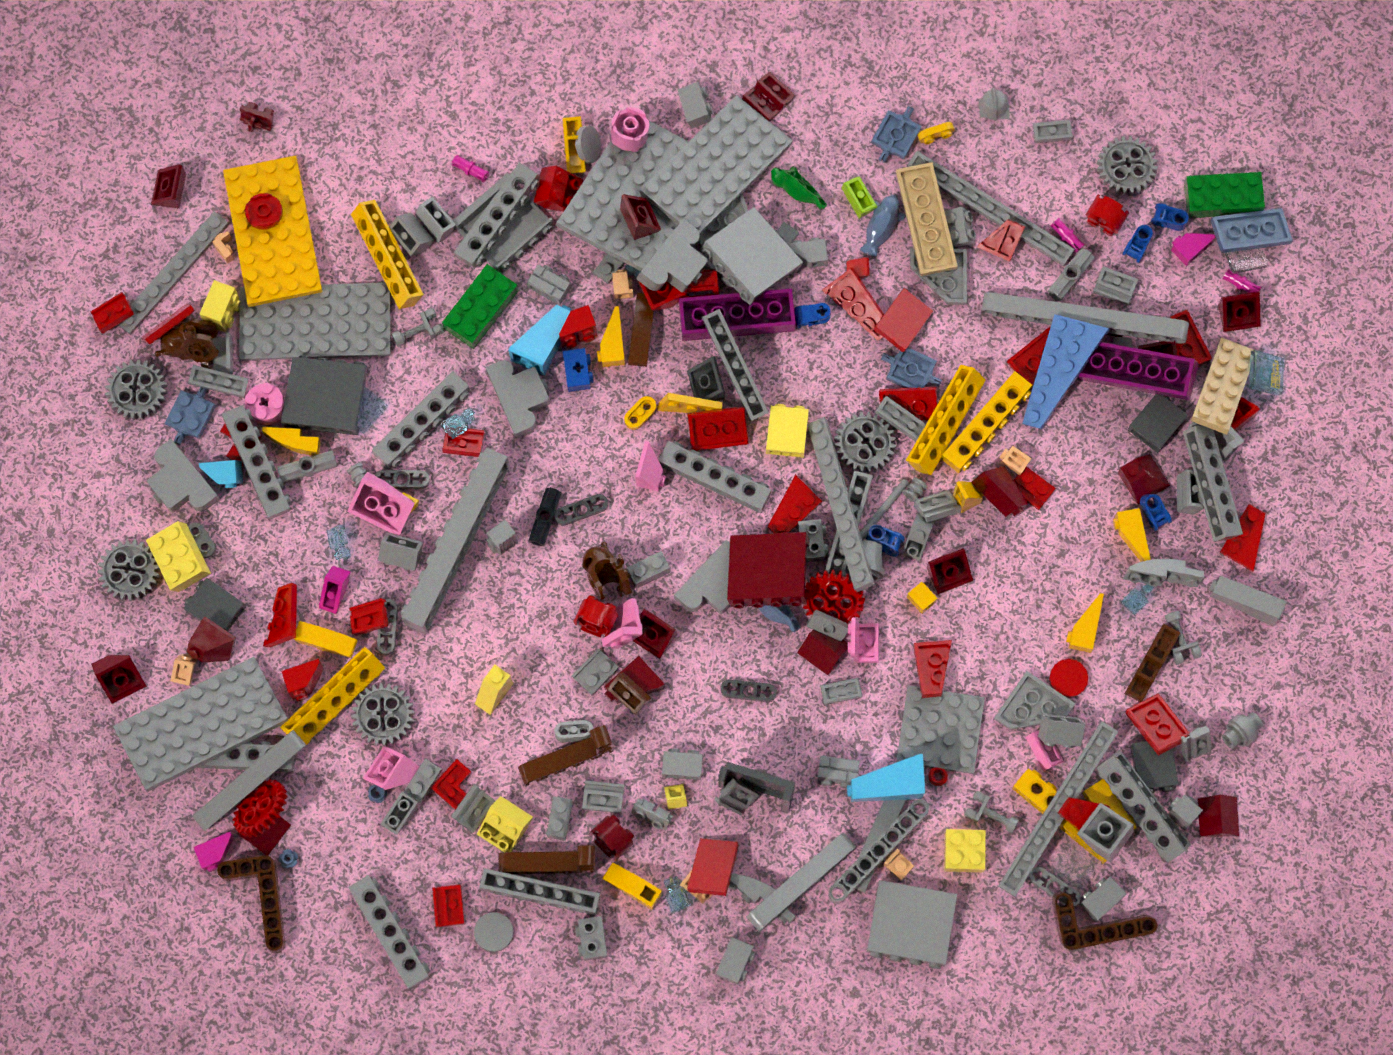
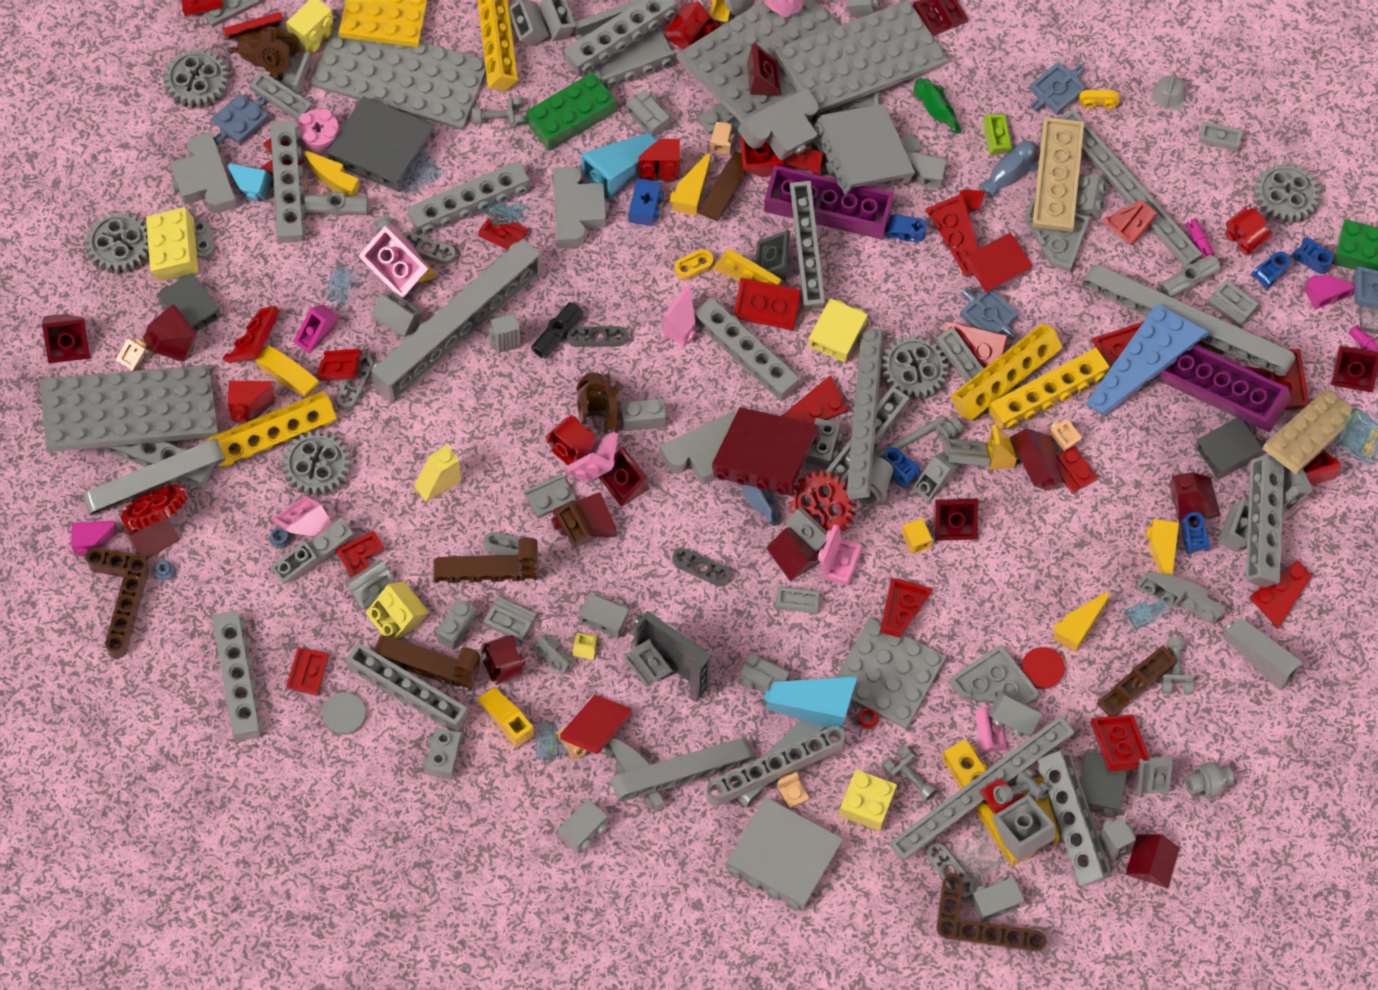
camera: 15 degrees right, 10 degrees down
(1080, 811) = (1025, 784): none -> light grey bar

